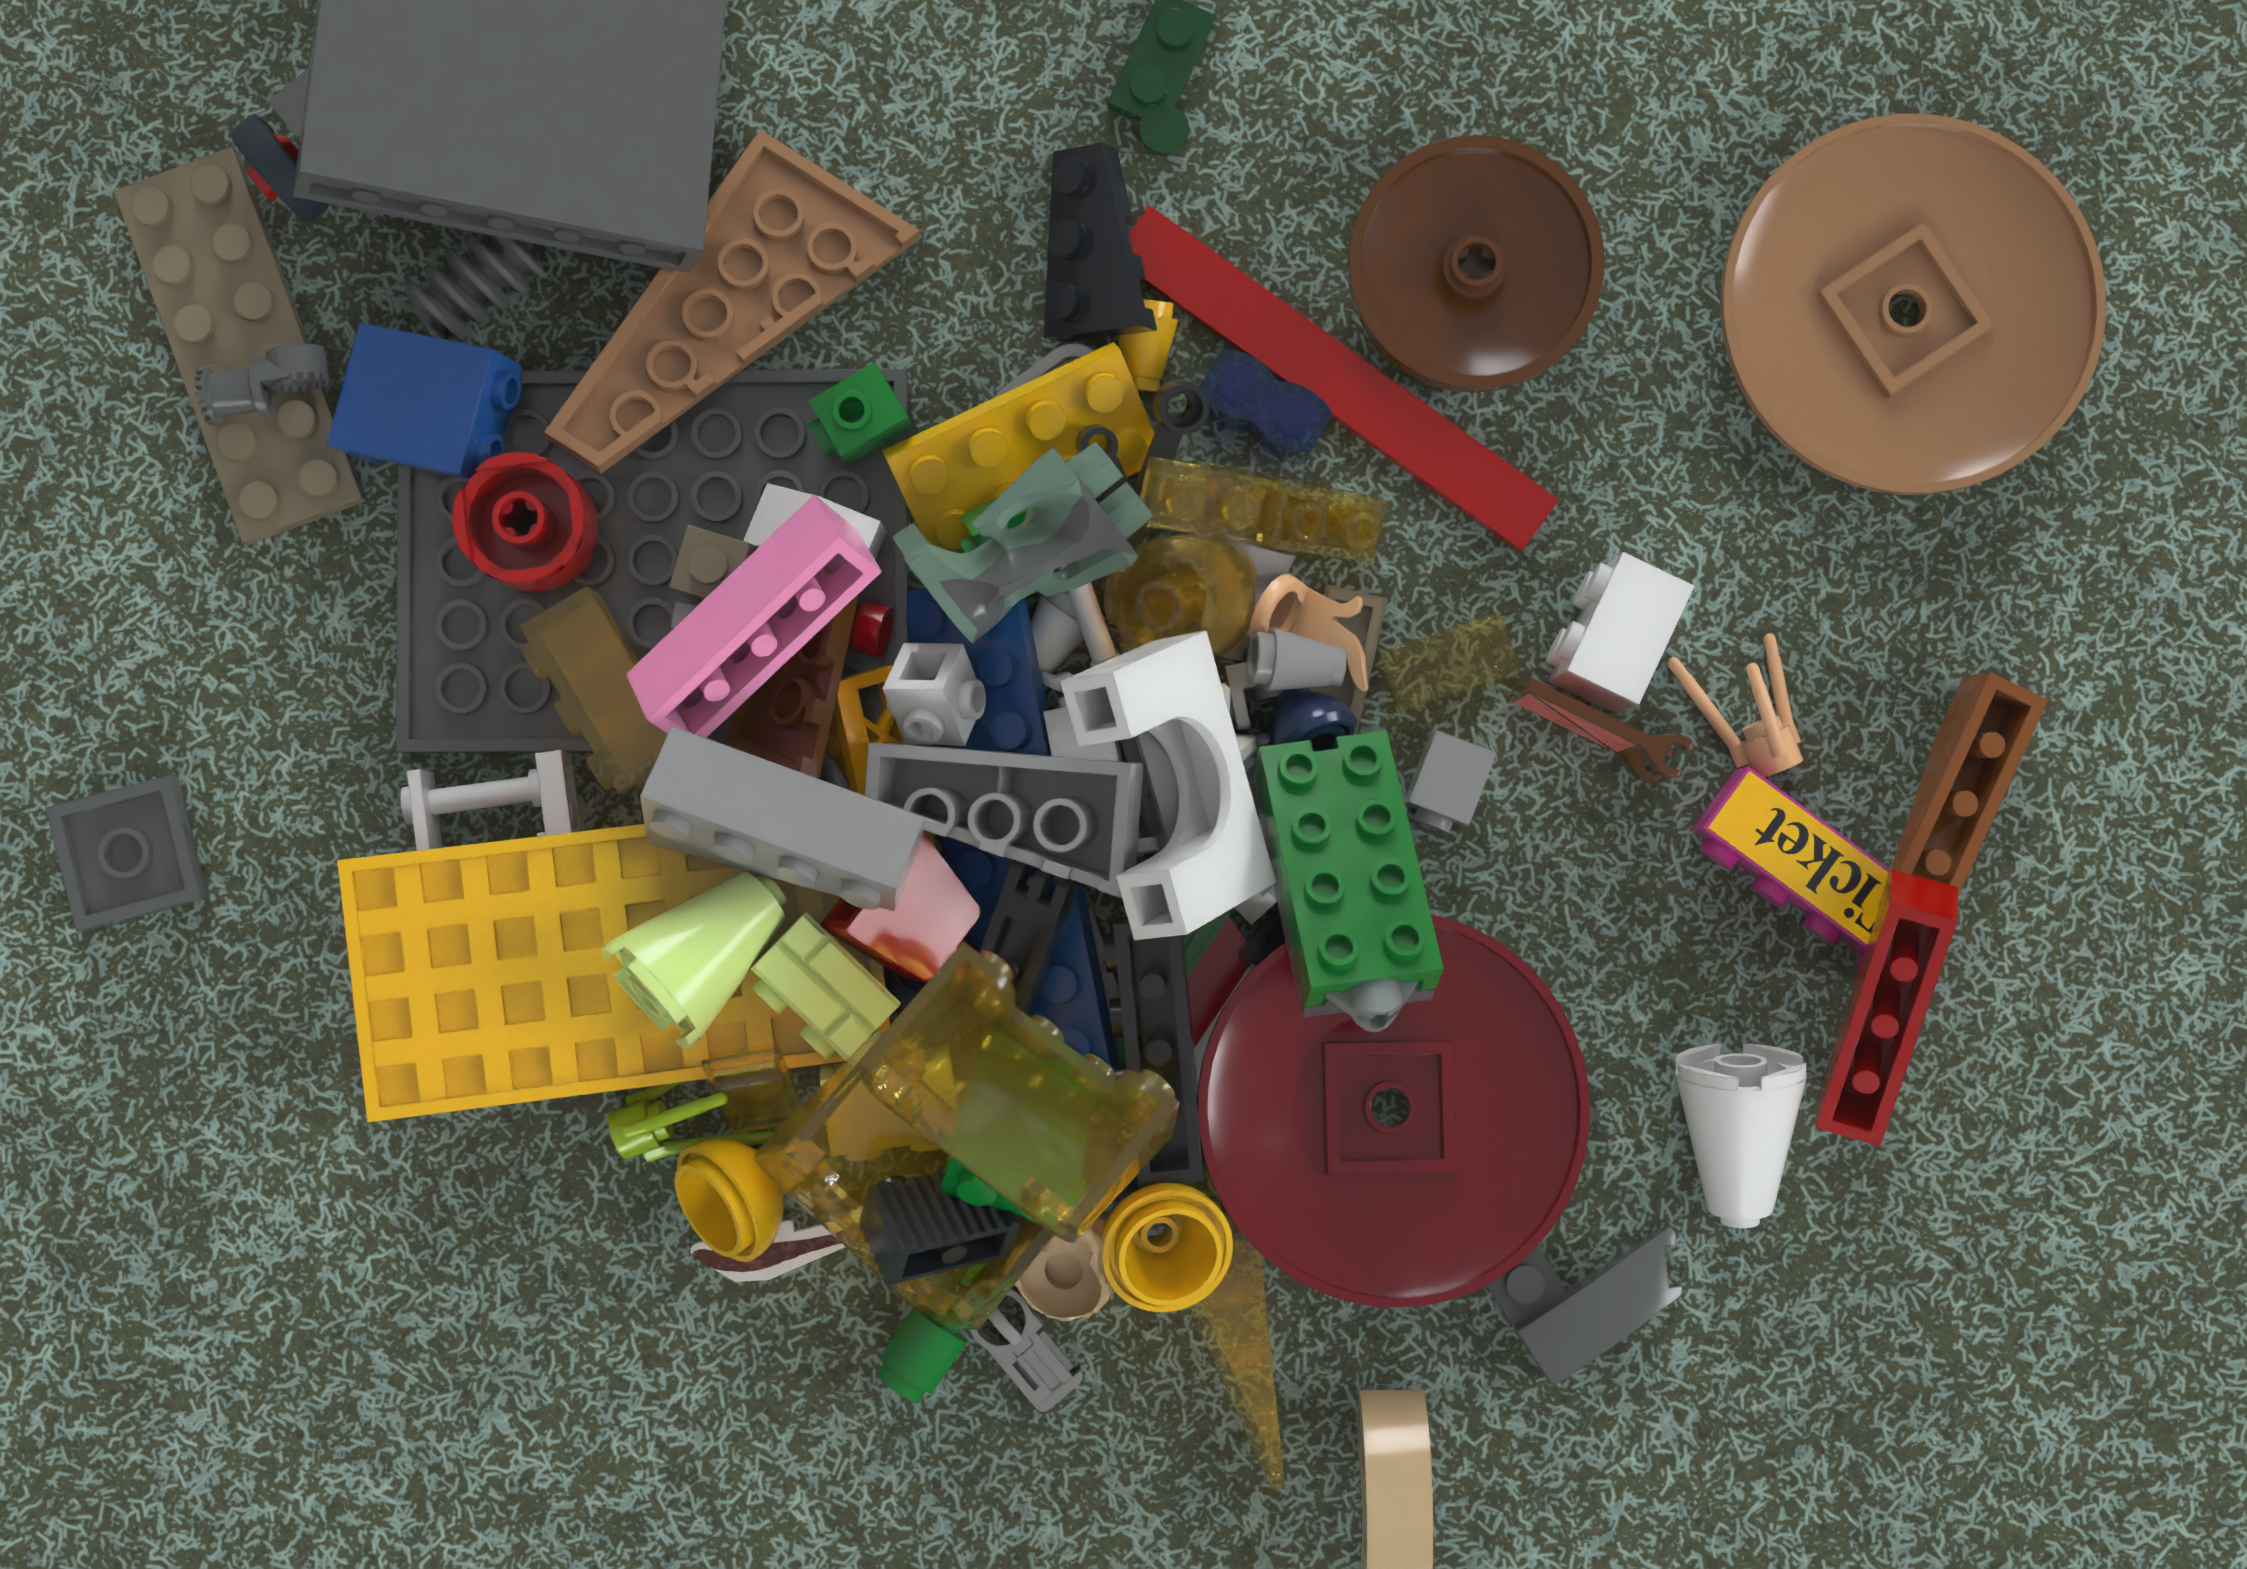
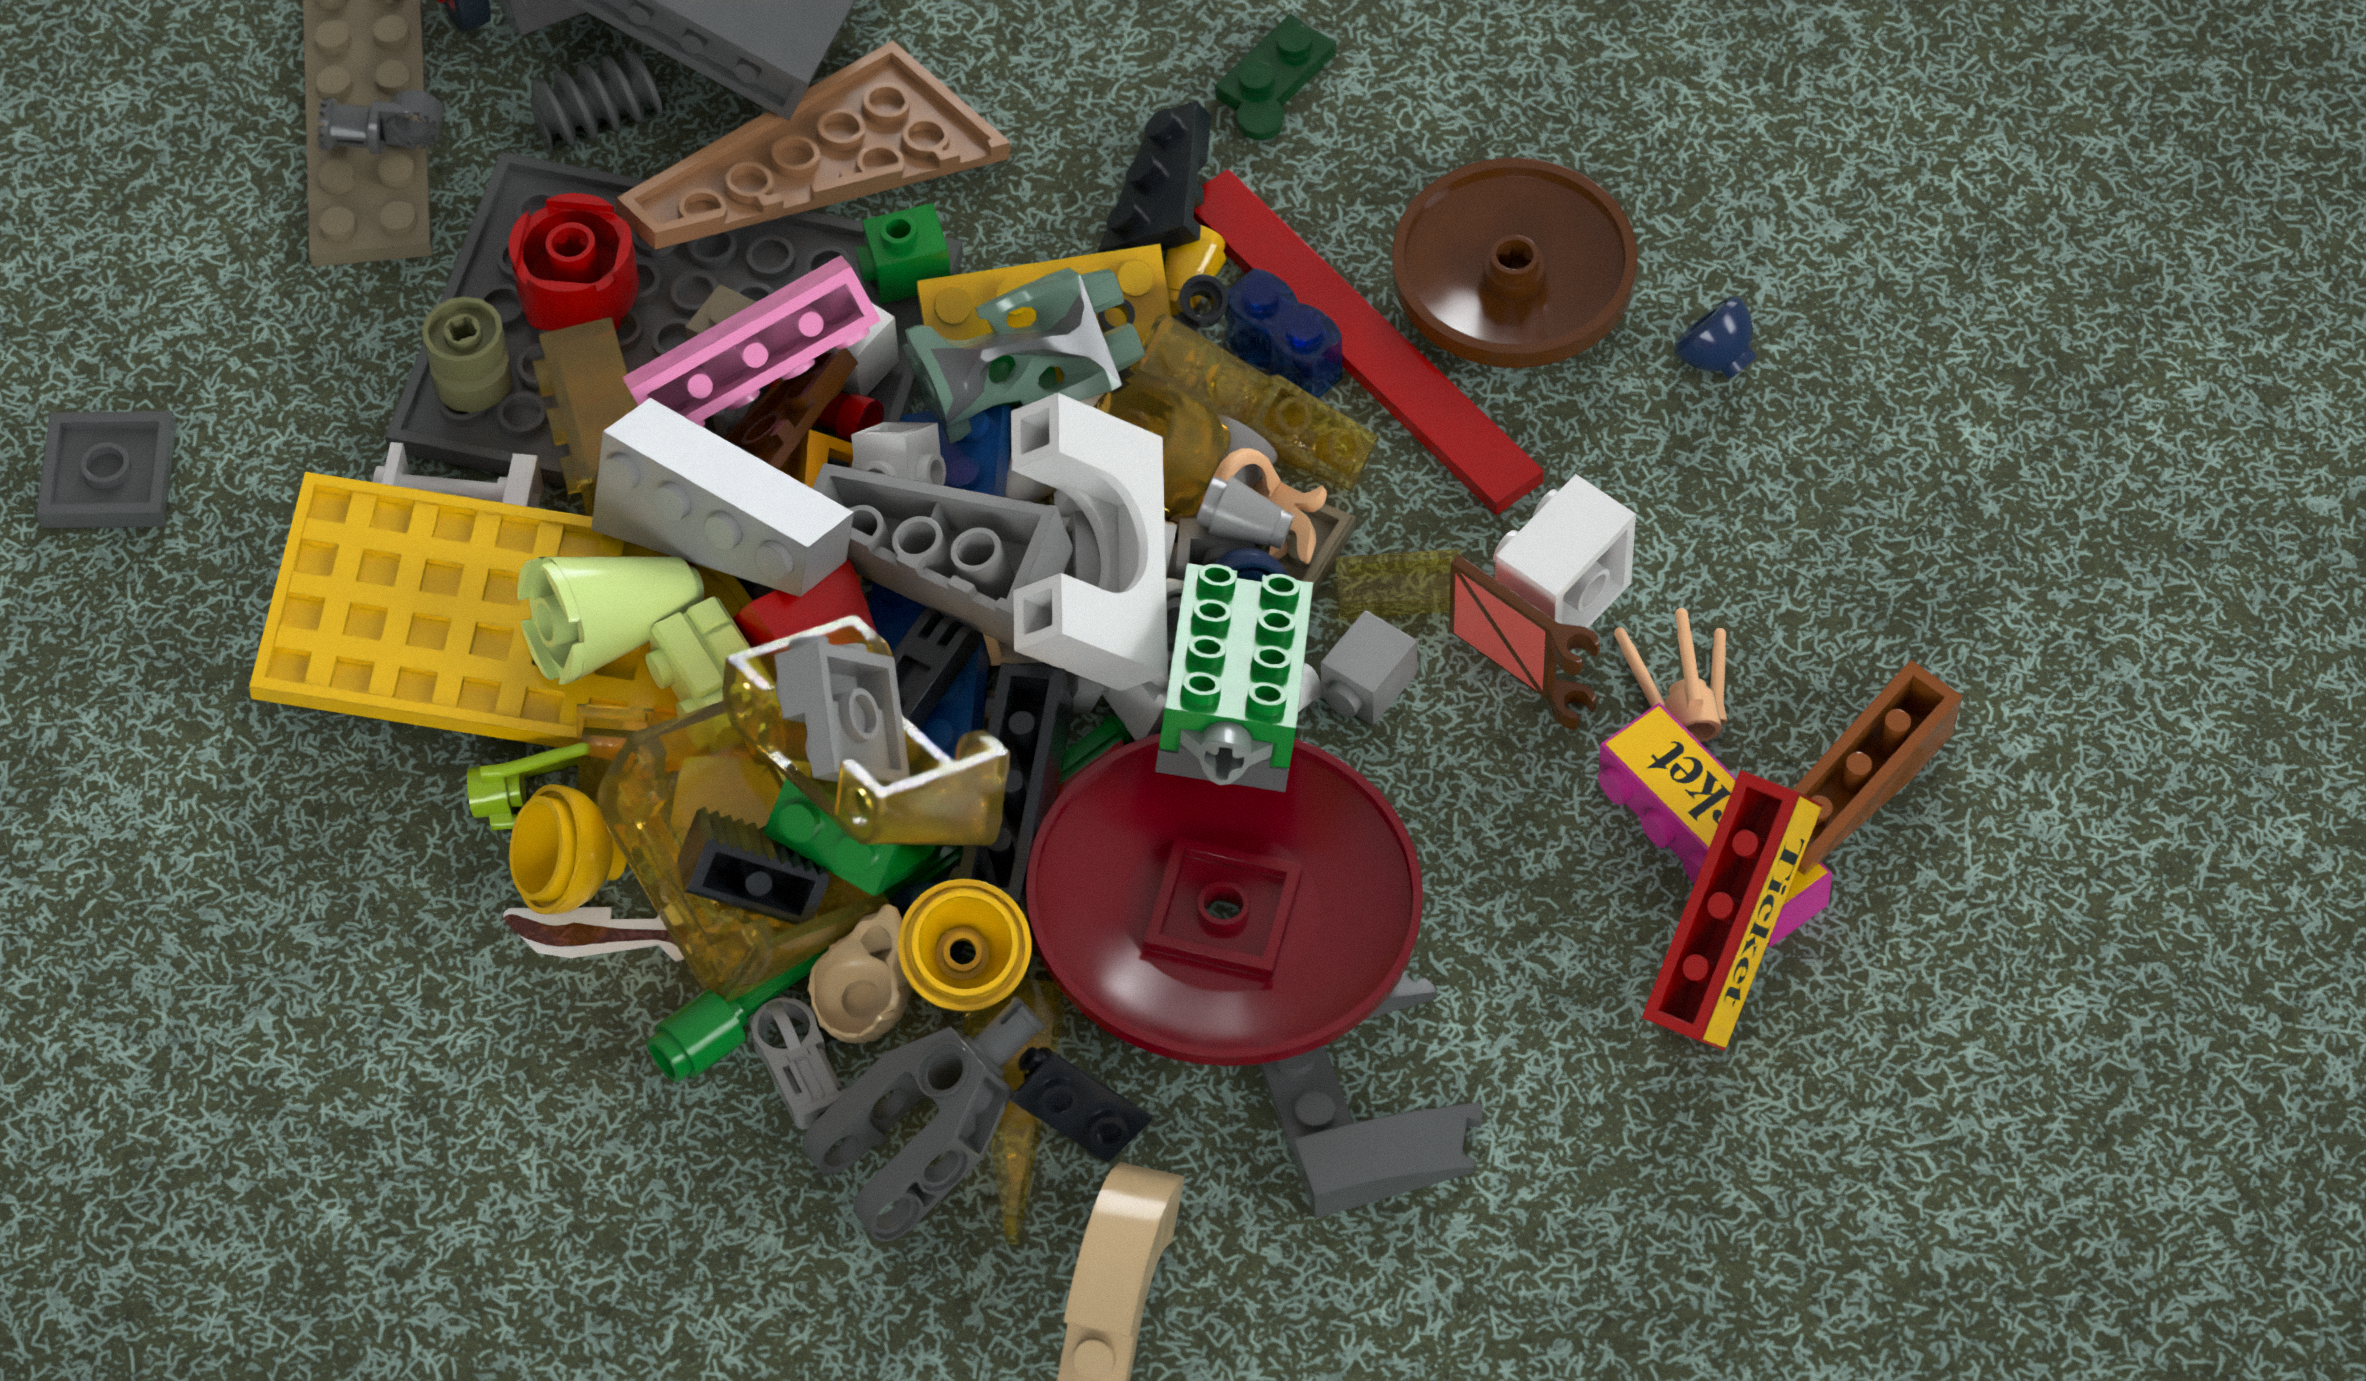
camera: 20 degrees right, 30 degrees down
(424, 402) = (511, 163): blue panel -> none
(451, 657) = (467, 354): none -> olive wheel
(994, 1081) = (847, 707): none -> light grey plate
(1210, 1410) = (971, 1099): none -> dark grey piece
(1306, 1345) = (1077, 1103): none -> black hinge
(1692, 298) = (1719, 339): none -> dark blue brick
(1740, 1124) = (1569, 1008): white cone -> none
(1983, 250) = (1933, 304): medium nougat dish -> none

